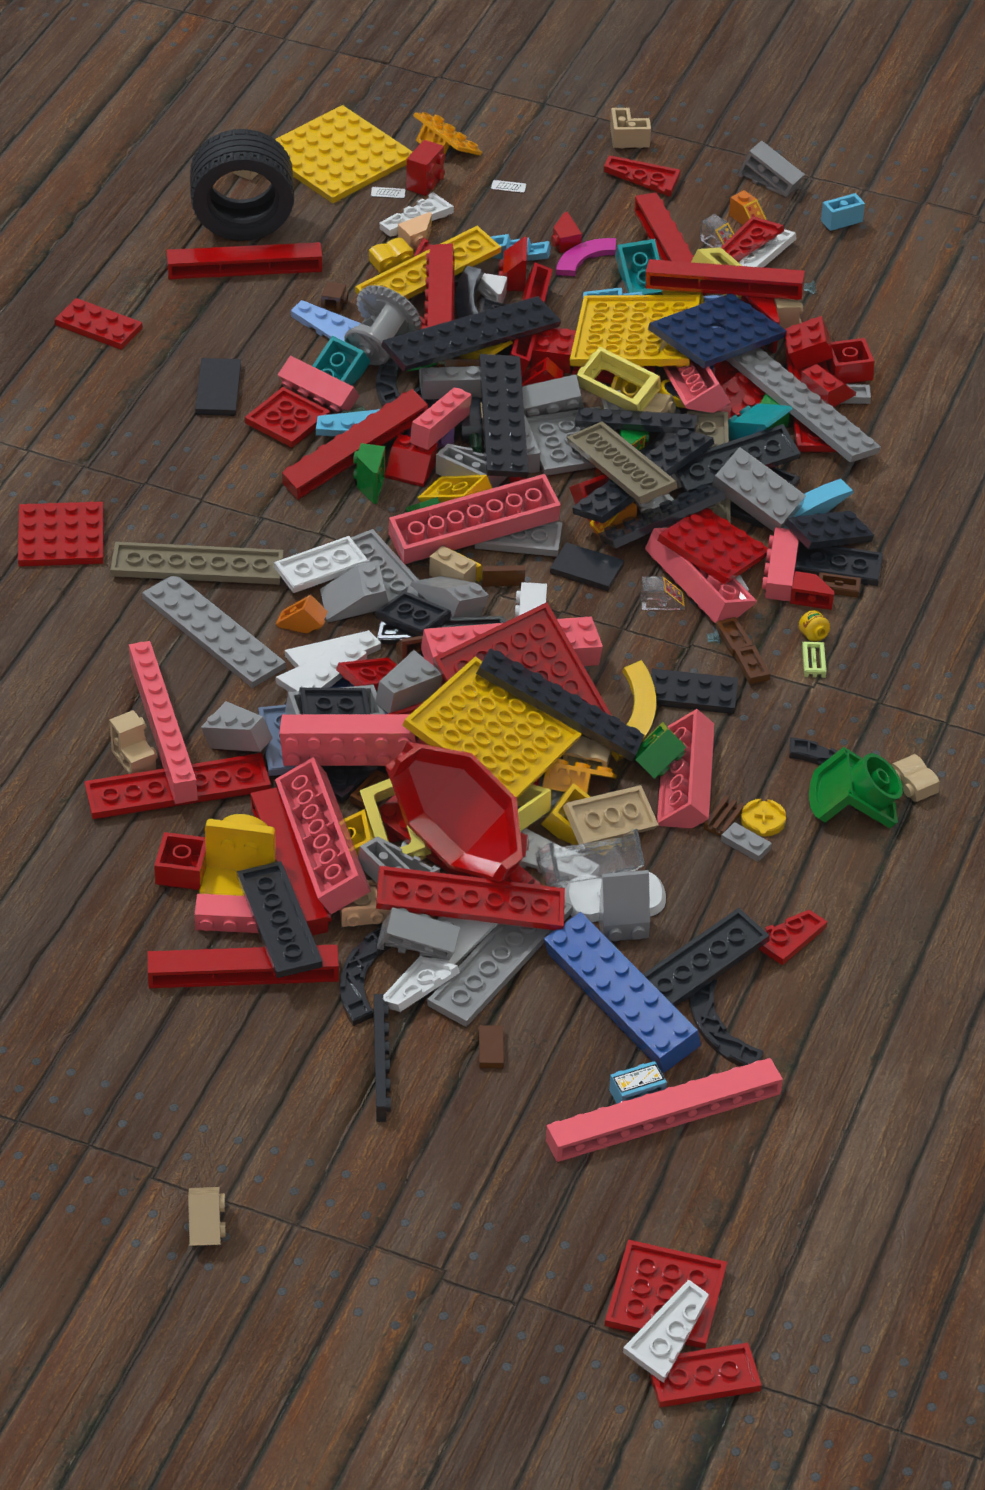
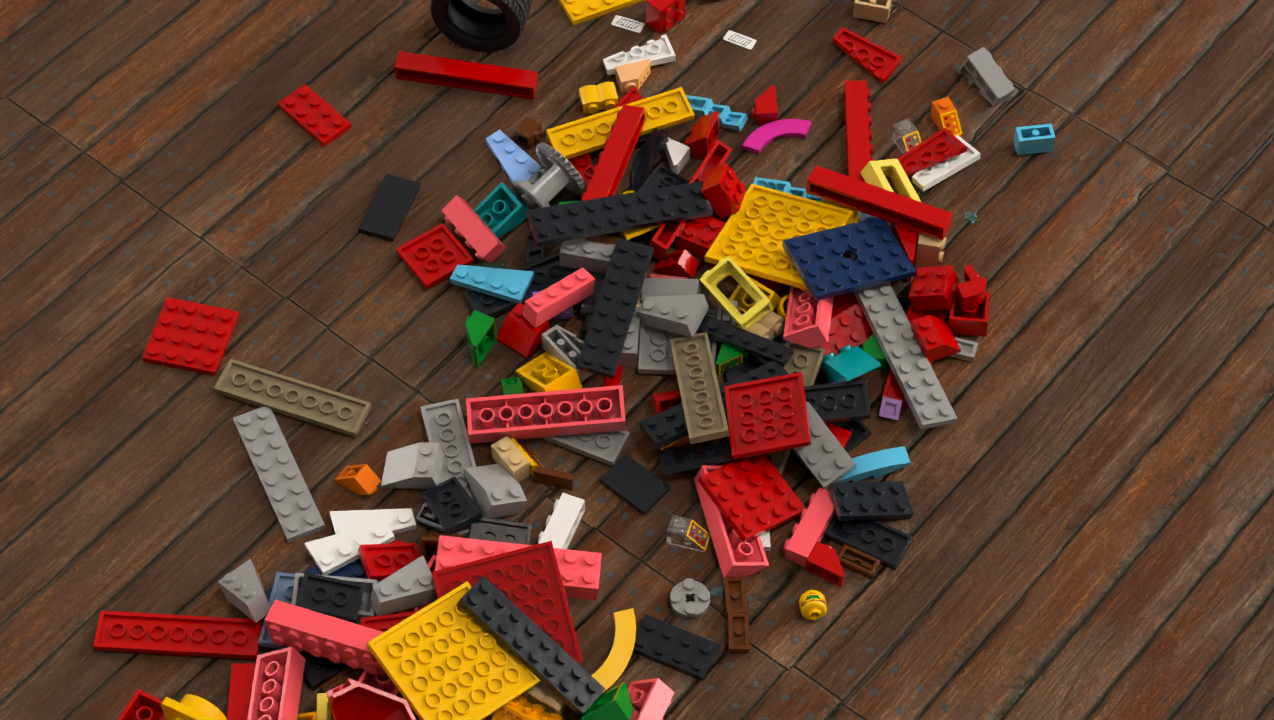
camera: 20 degrees right, 10 degrees up
(130, 743) = (154, 580): tan brick -> none
(163, 722) = (188, 567): coral brick -> none
(320, 564) = (395, 427): white tile -> none
(339, 453) = (485, 299): red brick -> none
(563, 301) = (723, 190): none -> red brick
(563, 410) = (674, 313): none -> light grey wedge
(633, 262) = (819, 152): teal slope -> none
(685, 639) = (691, 609): none -> light grey plate
(706, 465) = (767, 415): none -> red plate
(810, 453) = (890, 408): none -> lavender plate
(814, 670) = (795, 654): yellowish green tile -> none
(846, 335) = (972, 291): none -> red brick

